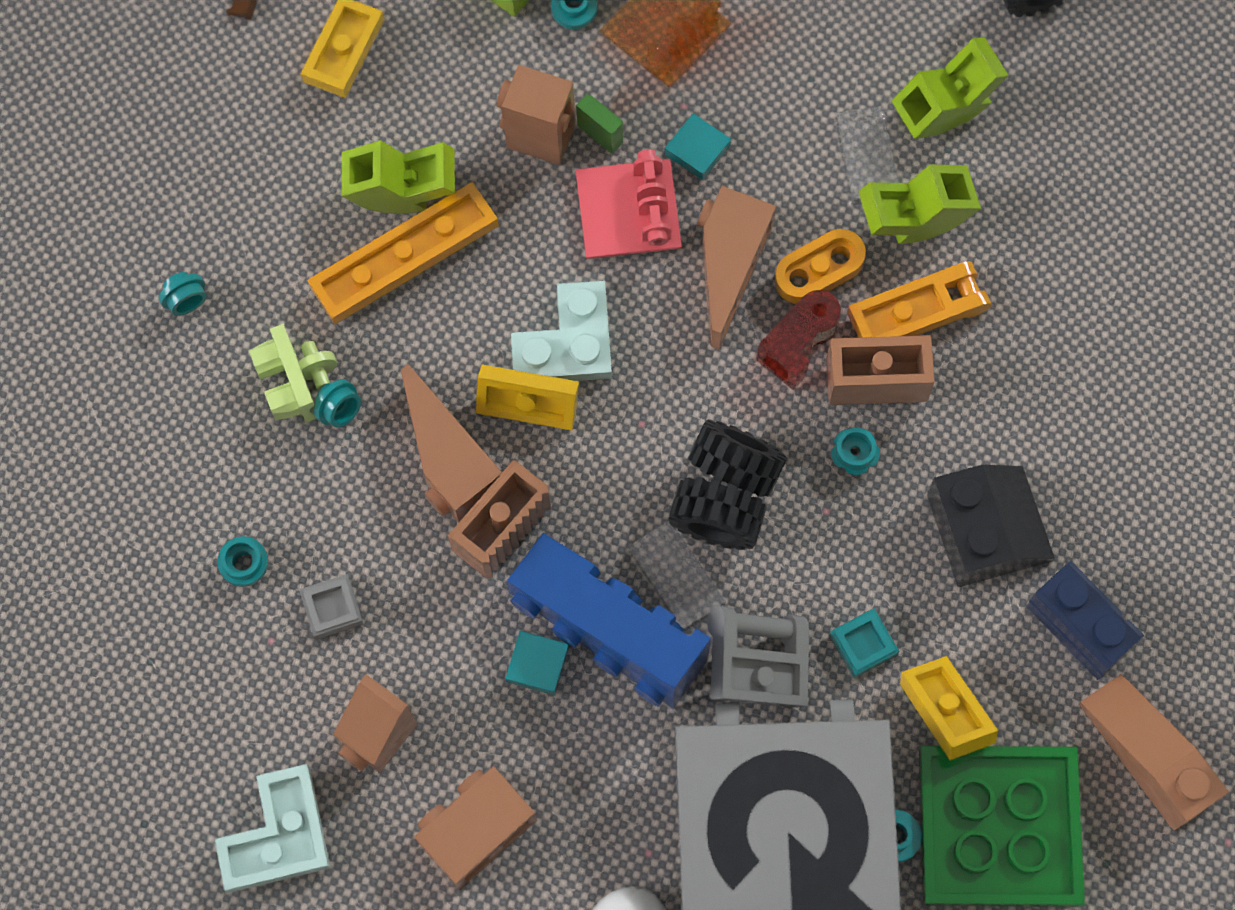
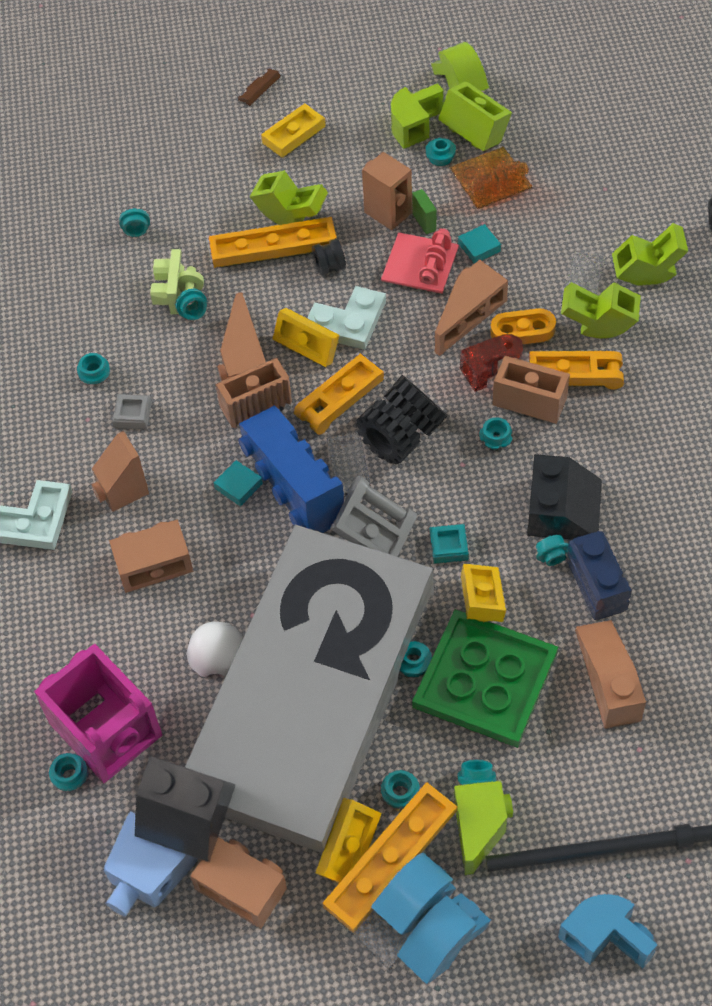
camera: 25 degrees right, 15 degrees down
(498, 250) = (328, 256): none -> black wheel
(614, 467) = (339, 393): none -> light orange plate
(1006, 603) = (552, 550): none -> teal plate

